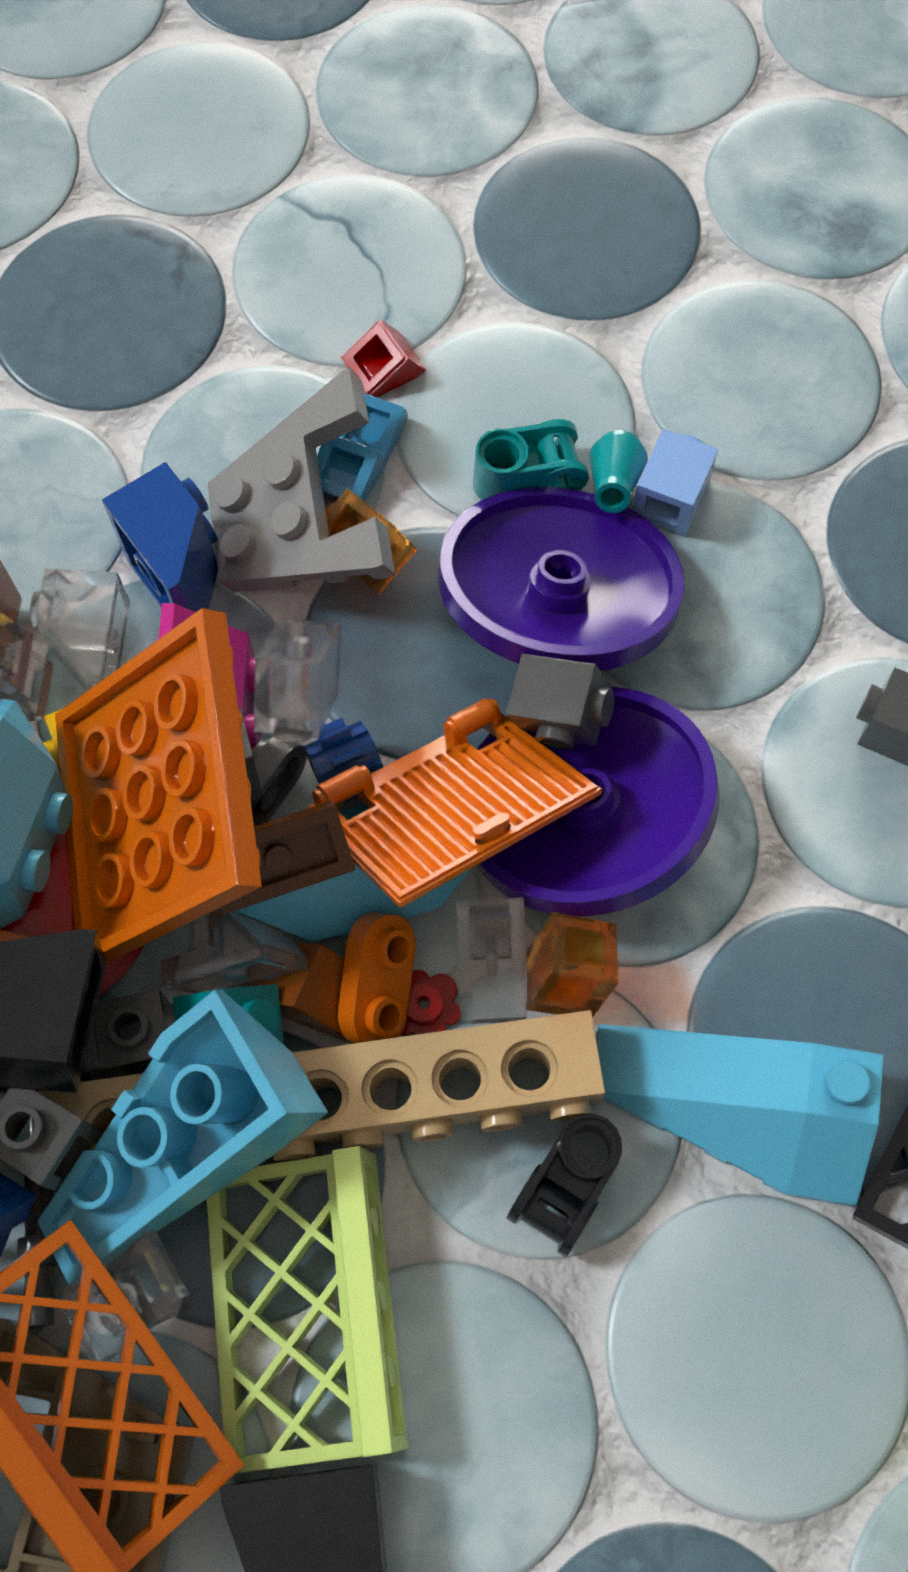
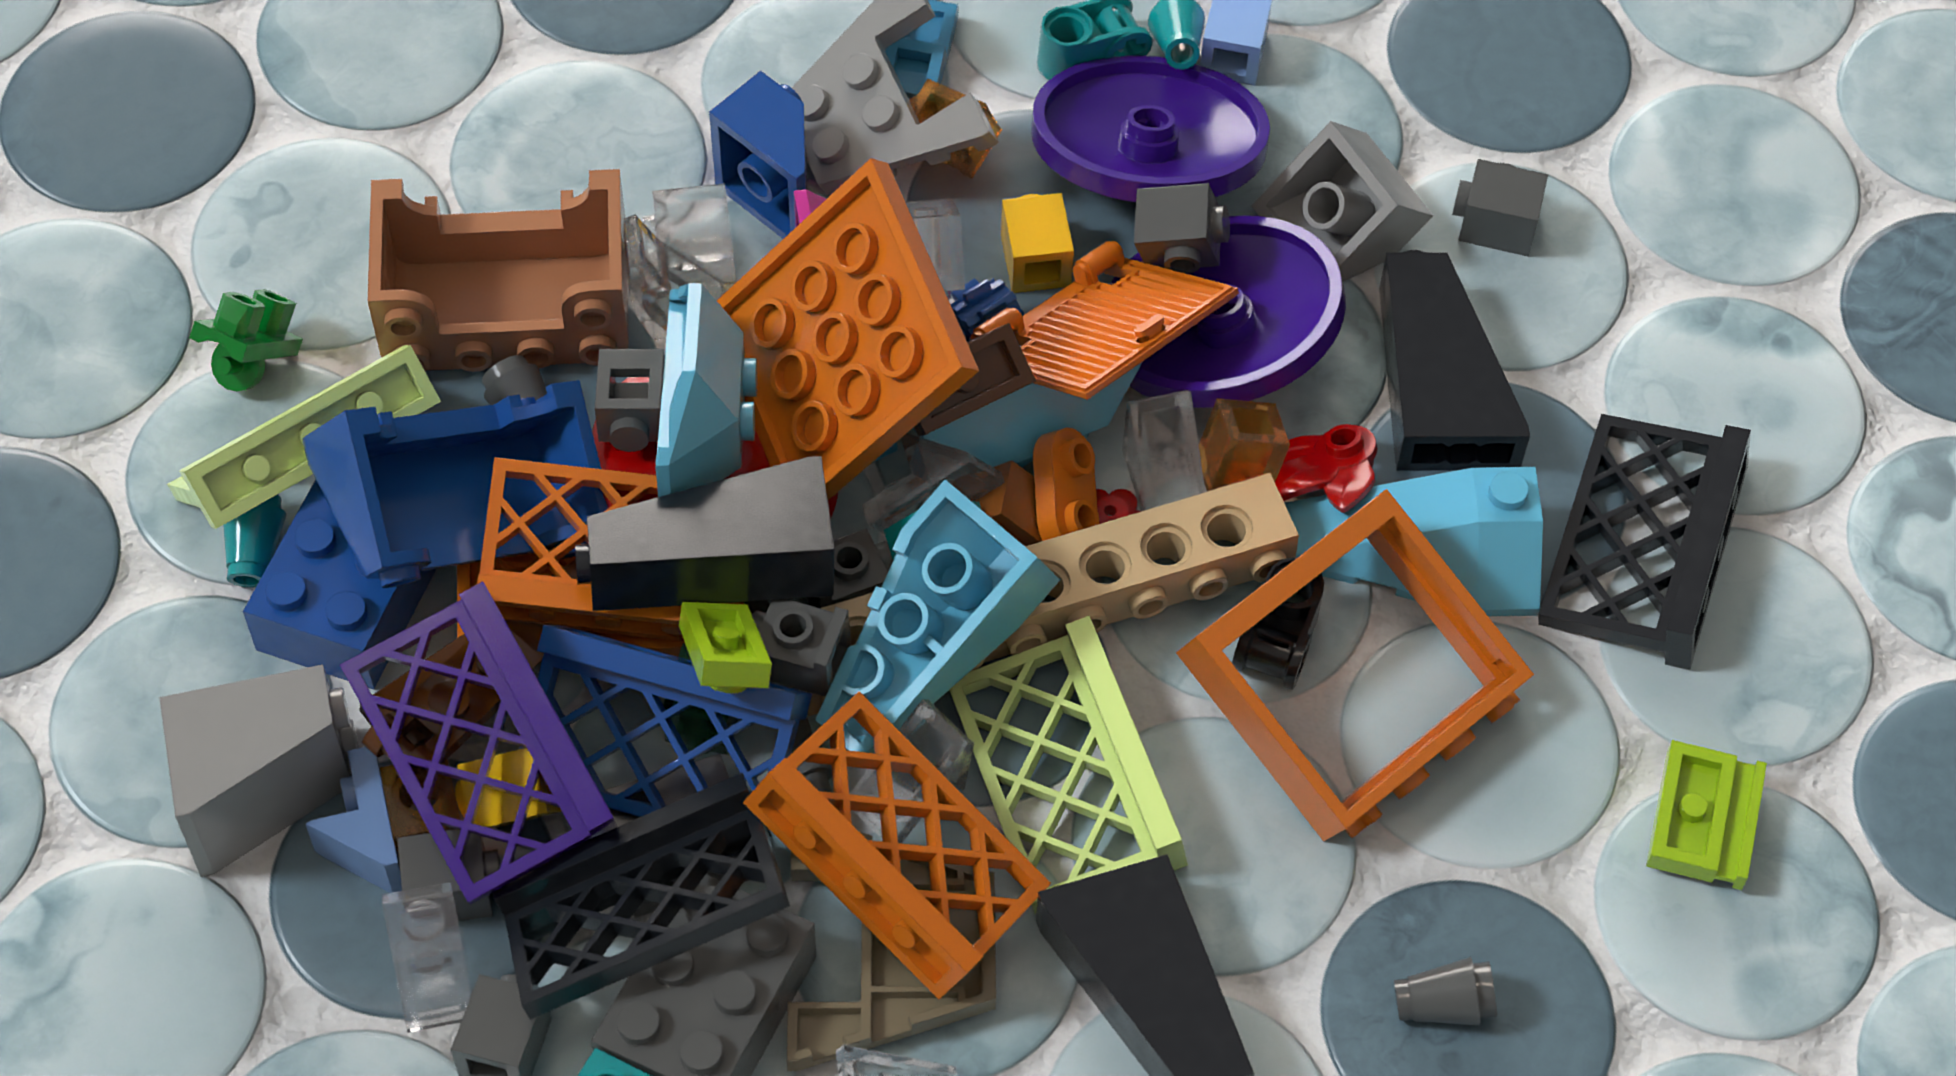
camera: 15 degrees left, 10 degrees down
(418, 680) = (1036, 242): none -> yellow brick
(655, 998) = (1334, 462): none -> red plate
(710, 1359) = (1447, 606): none -> orange window
(745, 688) = (1347, 198): none -> light grey slope
(807, 909) = (1442, 374): none -> black slope

